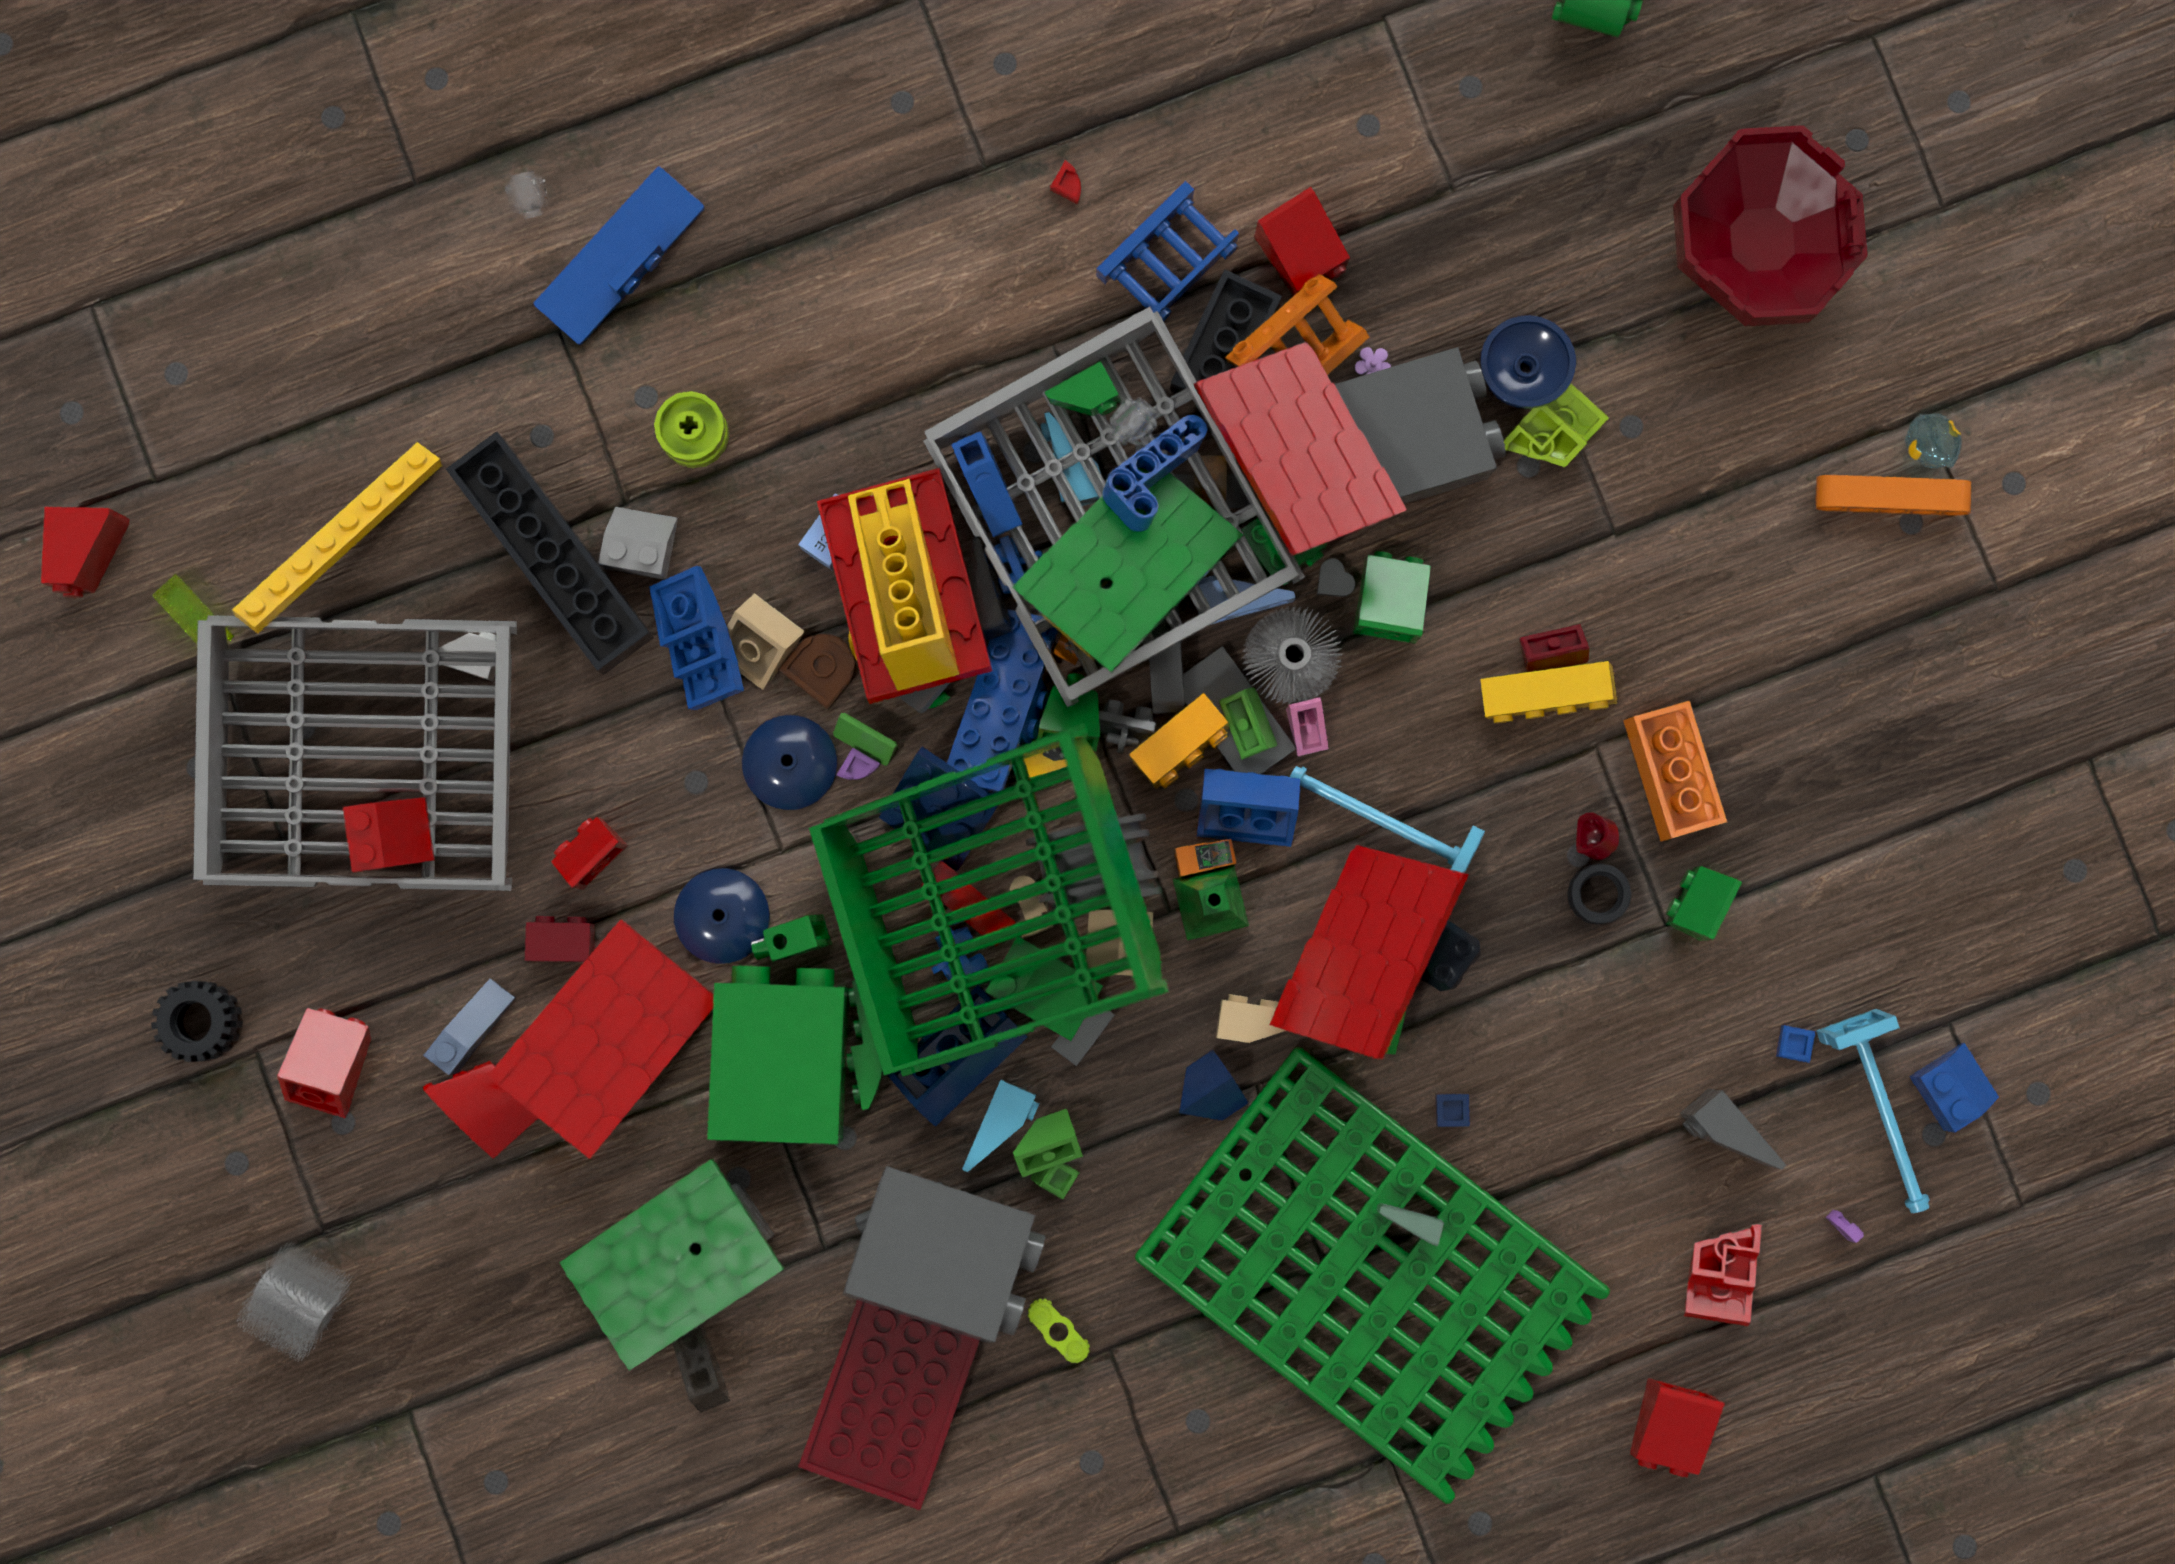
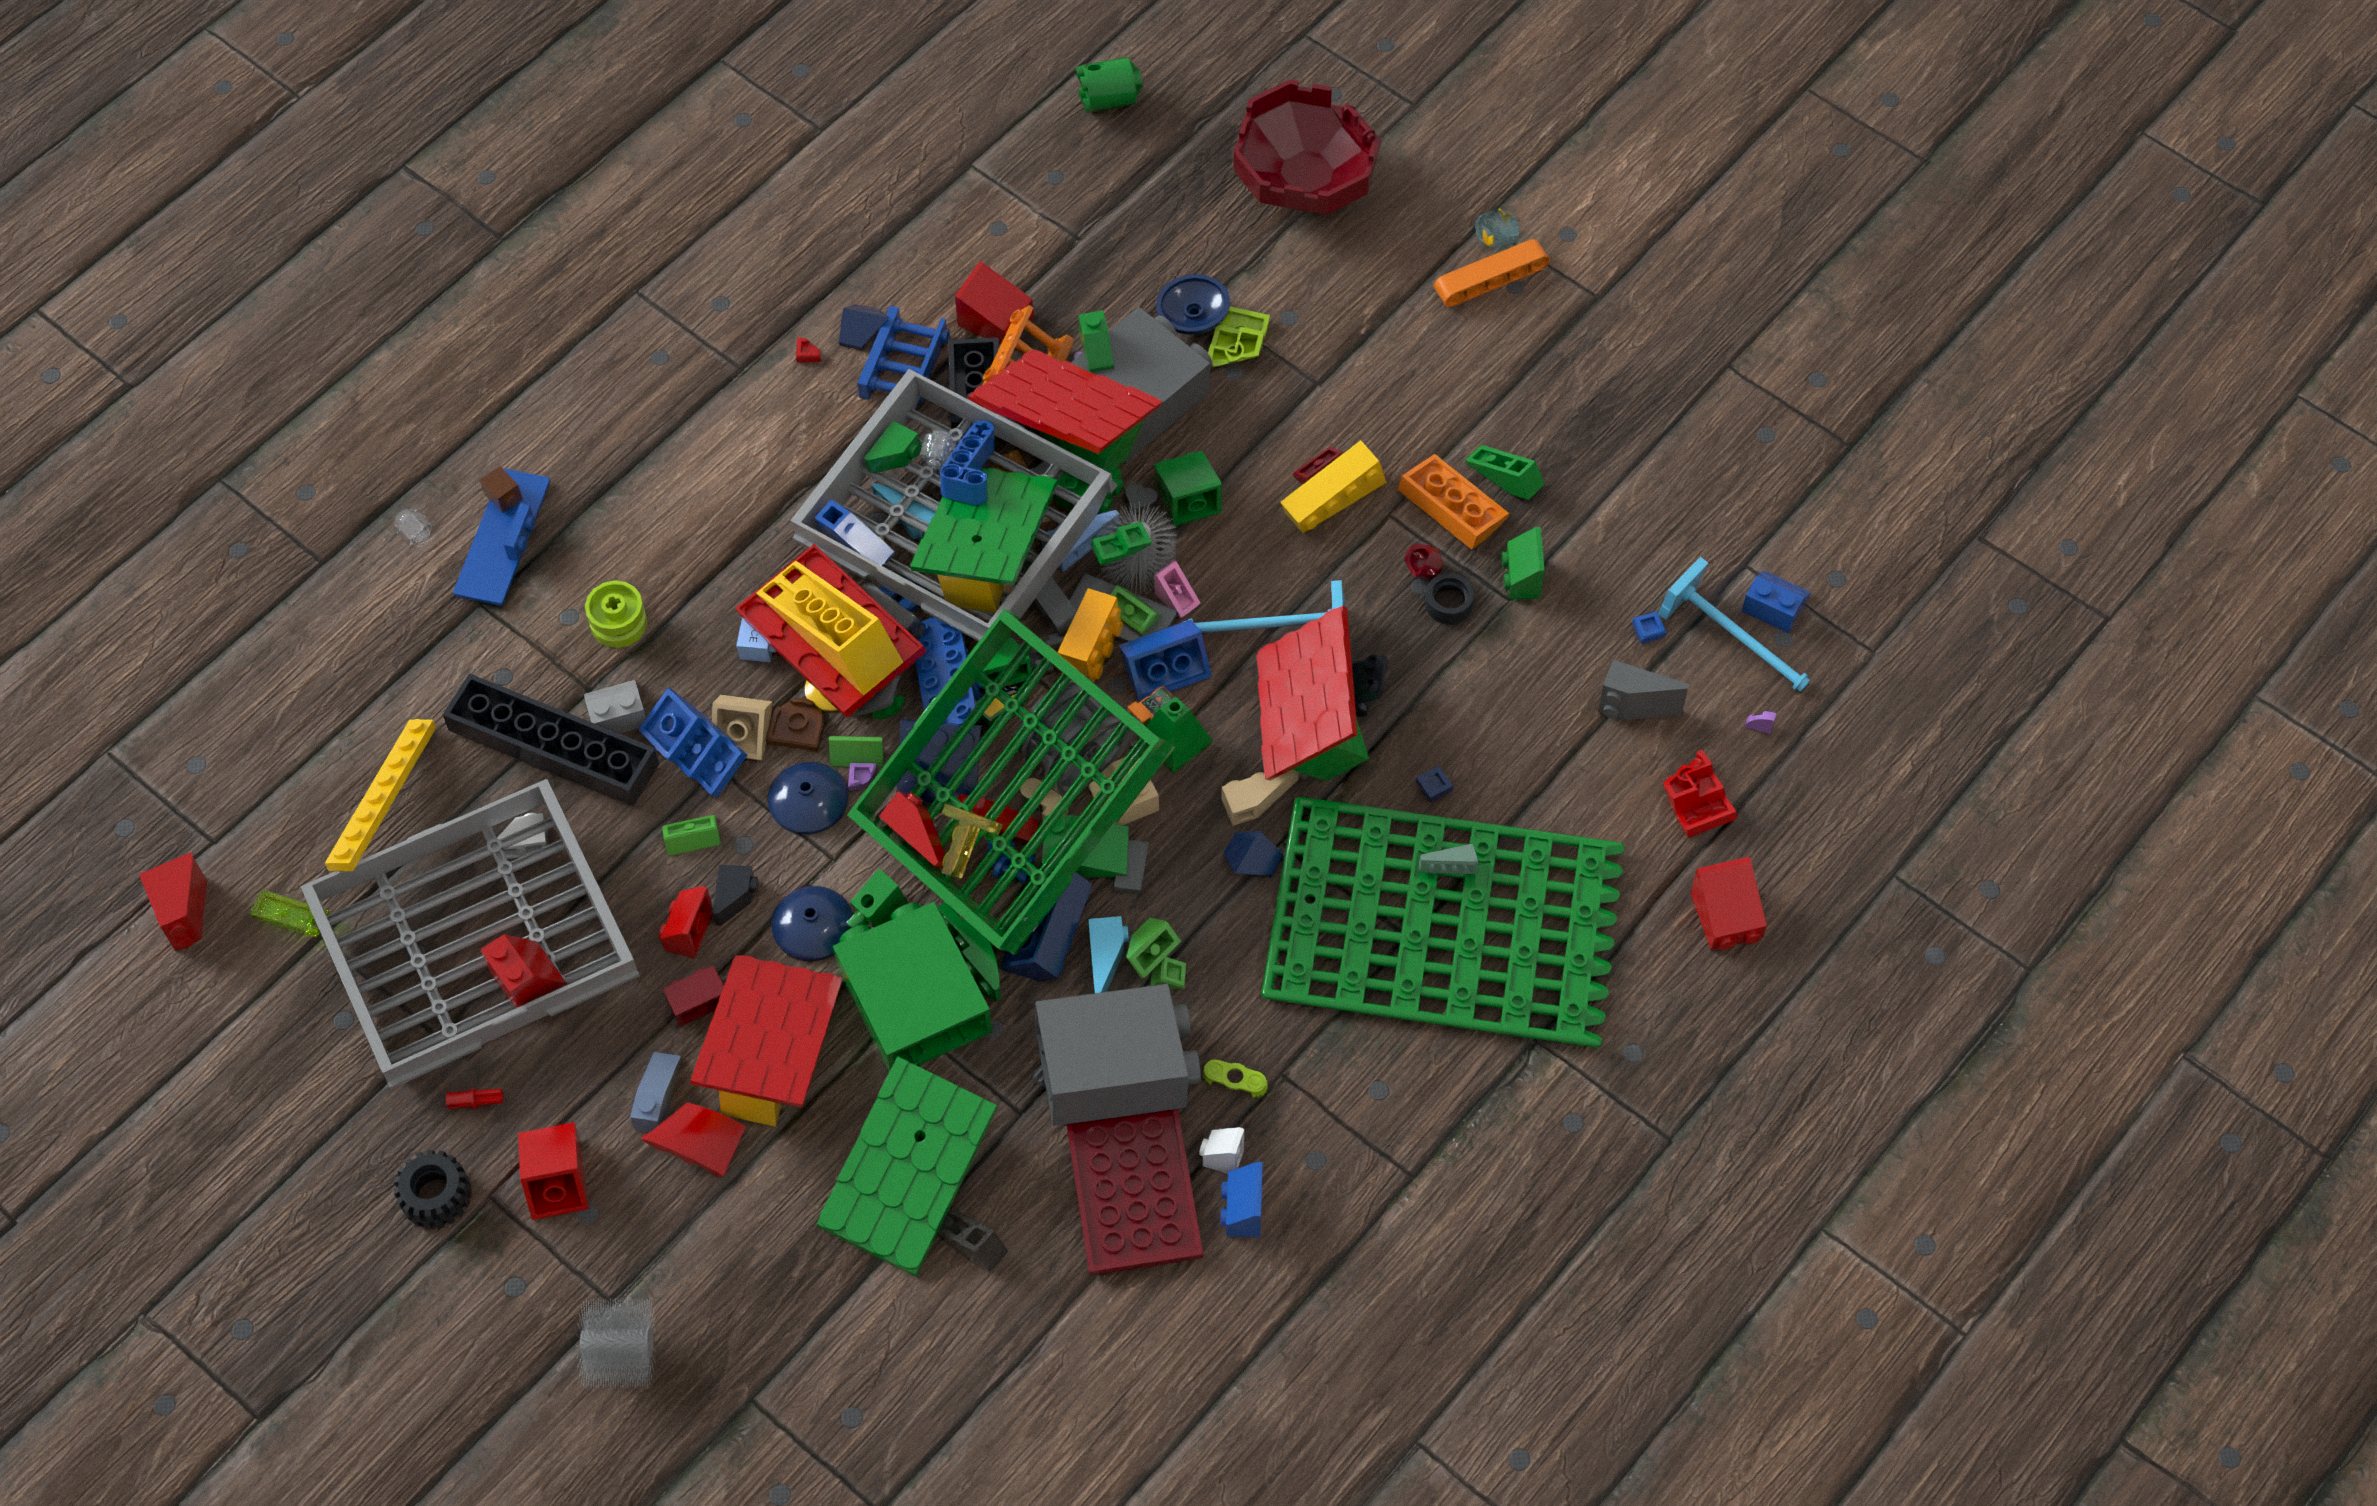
camera: 25 degrees left, 25 degrees down
(286, 935) = (474, 1098): none -> red axle
(640, 201) = (501, 489): none -> reddish brown brick
(647, 741) = (691, 835): none -> bright green slope
(655, 839) = (733, 891): none -> black slope
(873, 881) = (914, 825): none -> red slope
(926, 918) = (964, 838): none -> clear yellow bracket
(989, 1480) = (1243, 1201): none -> blue slope
(999, 1412) = (1223, 1149): none -> white slope
(1145, 182) = (859, 325): none -> dark blue slope
(1267, 659) = (1125, 542): none -> green slope
(1381, 377) = (1096, 341): none -> green slope
(1755, 766) = (1508, 471): none -> green slope

